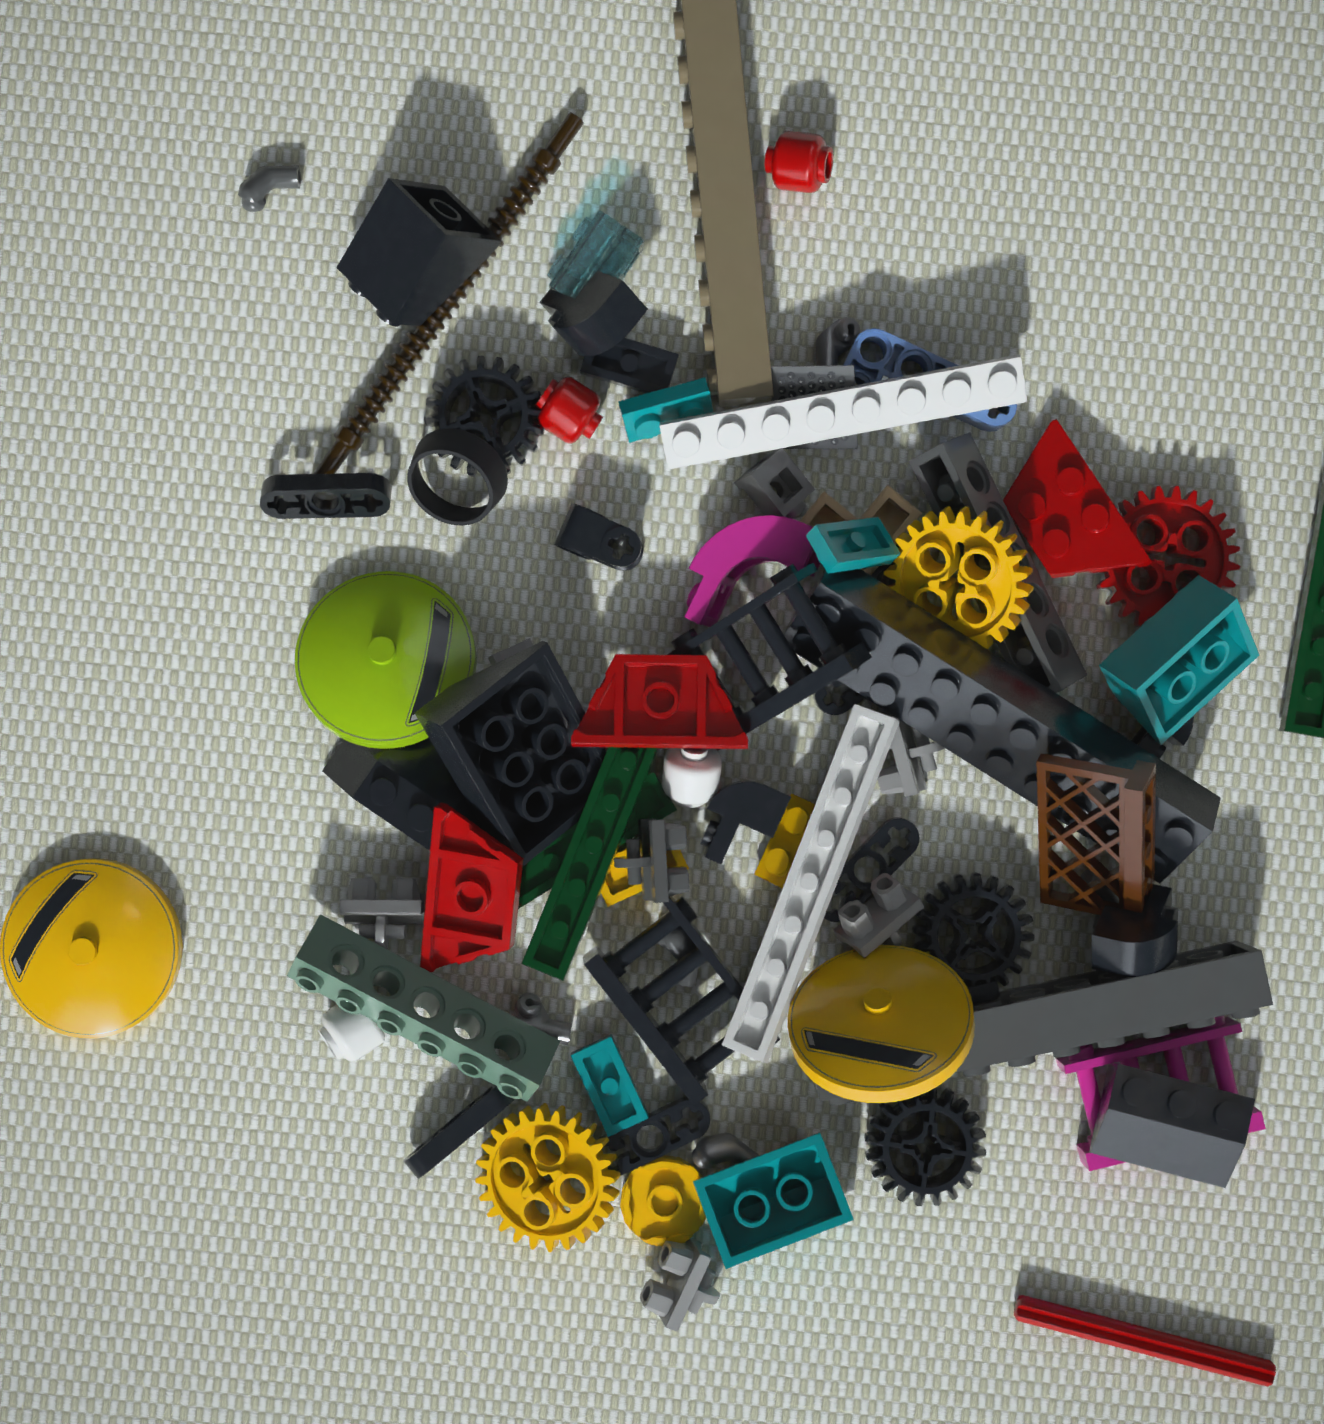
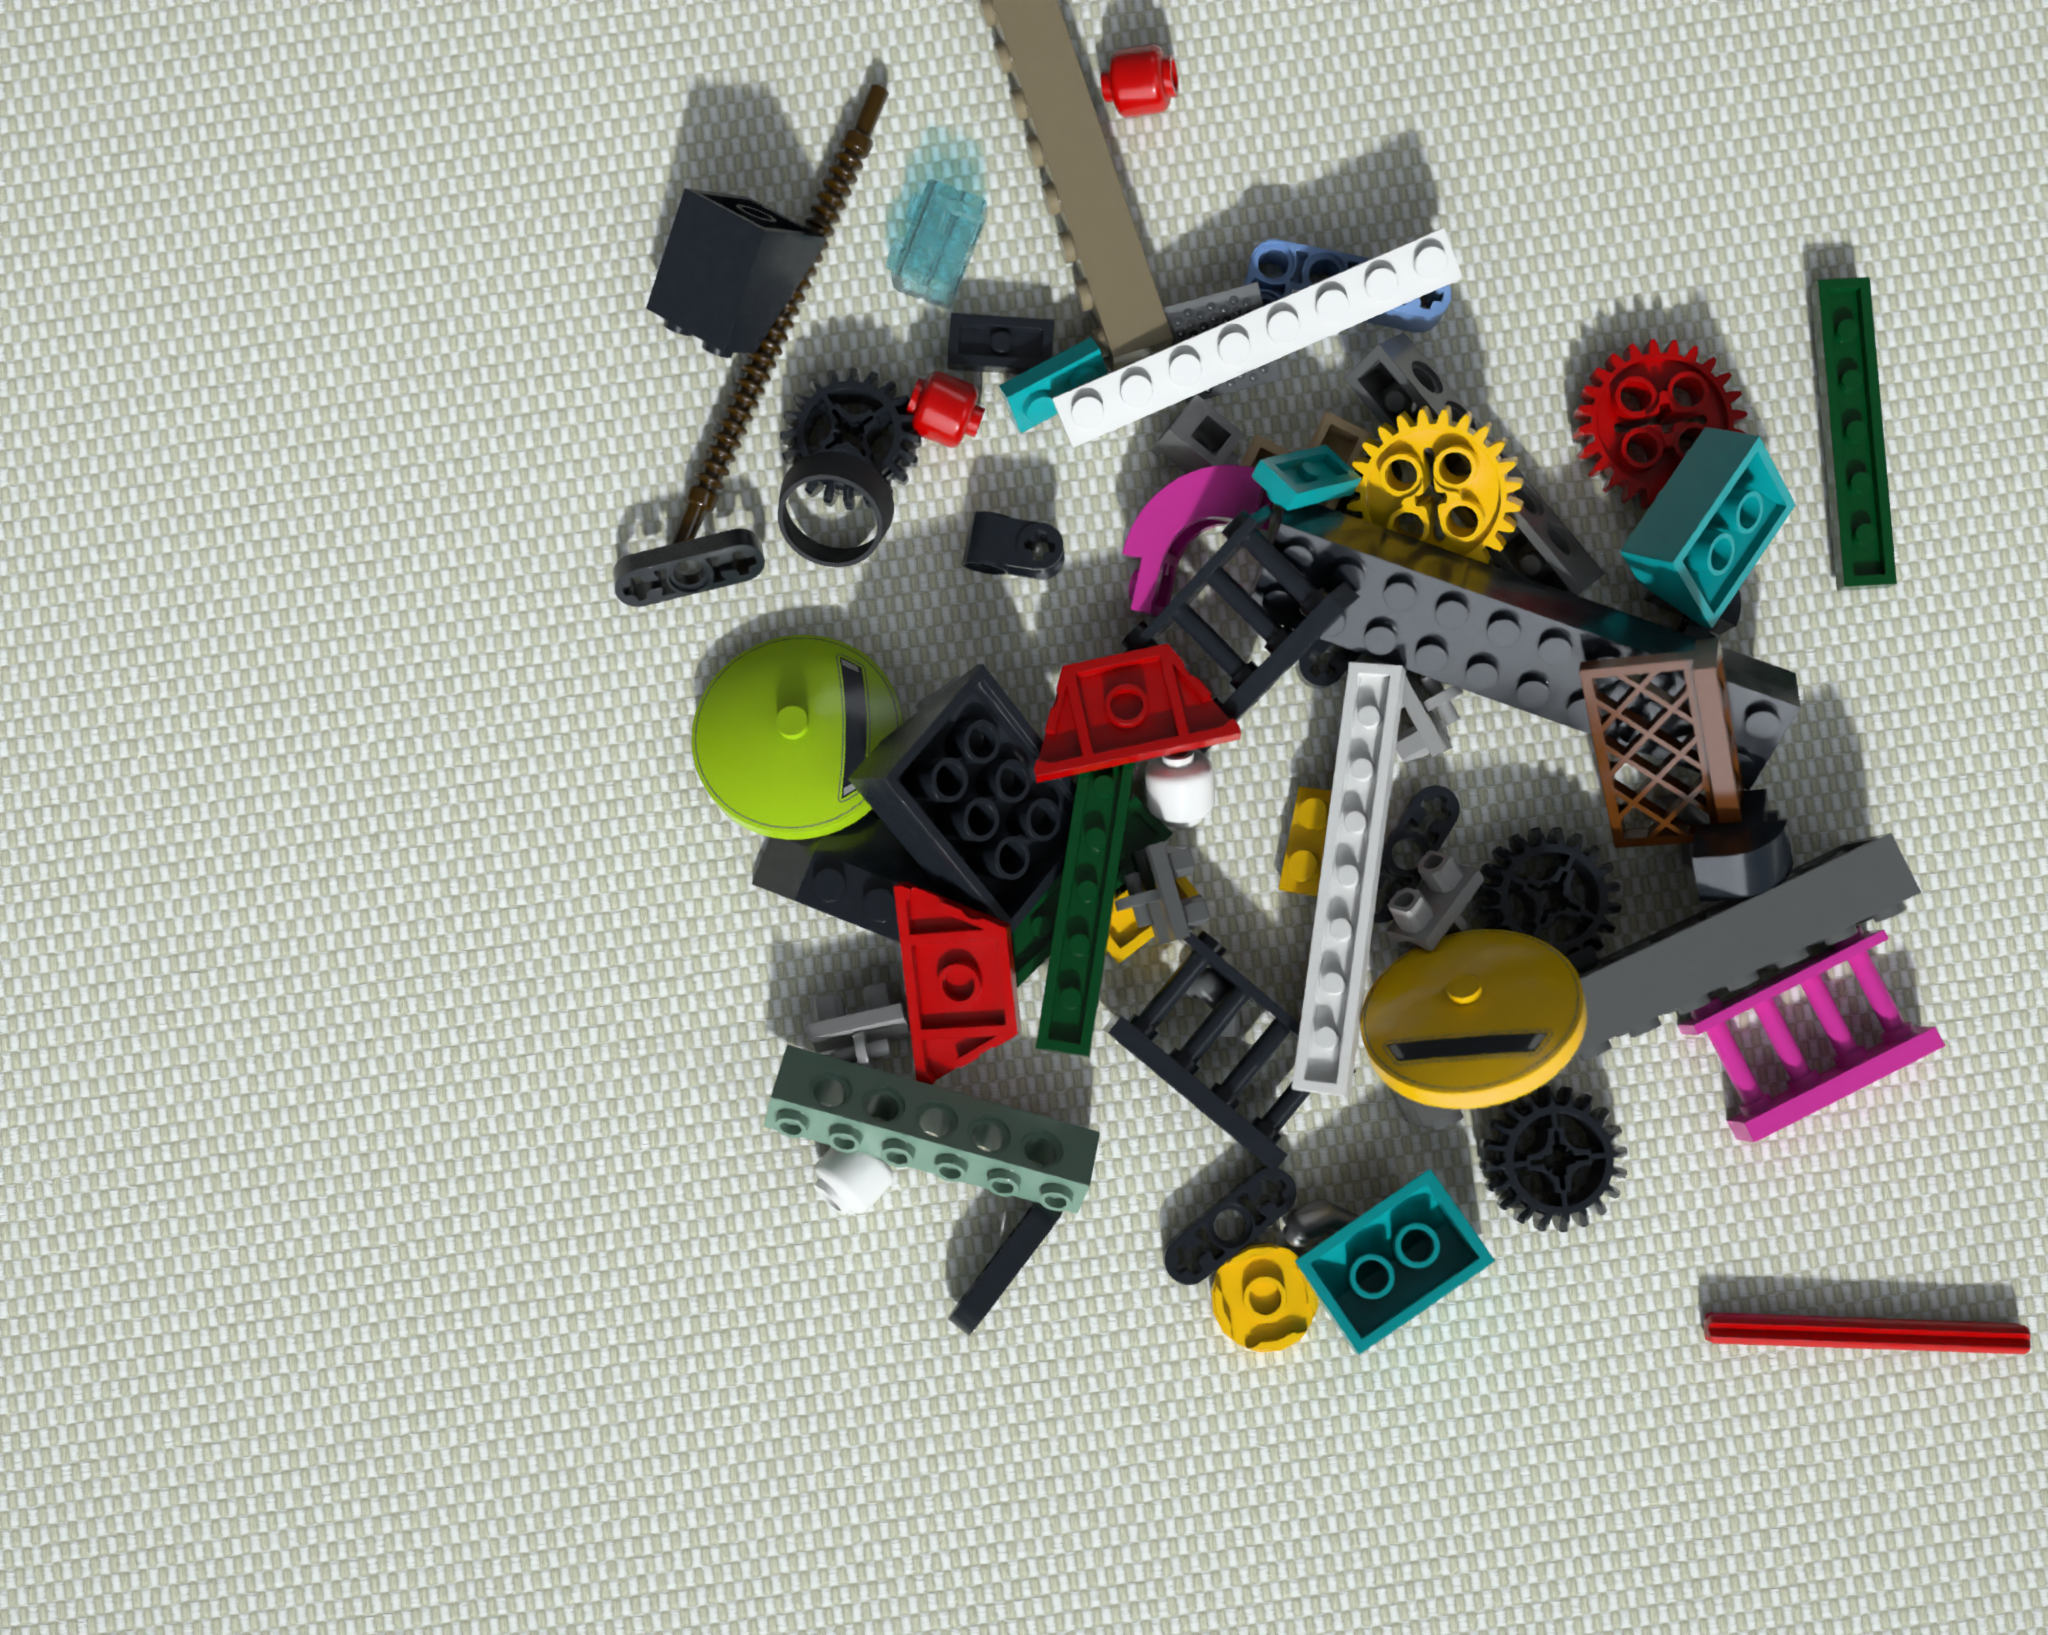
camera: 10 degrees left, 5 degrees down
(91, 947) = (525, 1151): yellow dish -> none
(263, 181) = (543, 235): dark grey arm -> none
(516, 1195) = (1154, 1266): yellow gear -> none
(531, 1010) = (1056, 1105): flat silver arm -> none
(597, 316) = (954, 292): black brick -> none
(609, 1085) = (1168, 1173): teal plate -> none
(686, 1287) = (1313, 1391): light grey hips -> none
(744, 804) = (1254, 809): black brick -> none
(835, 341) = (1228, 265): flat silver arm -> none
(1069, 512) = (1540, 396): red wing -> none
(1171, 1125) = (1837, 1063): black slope -> none

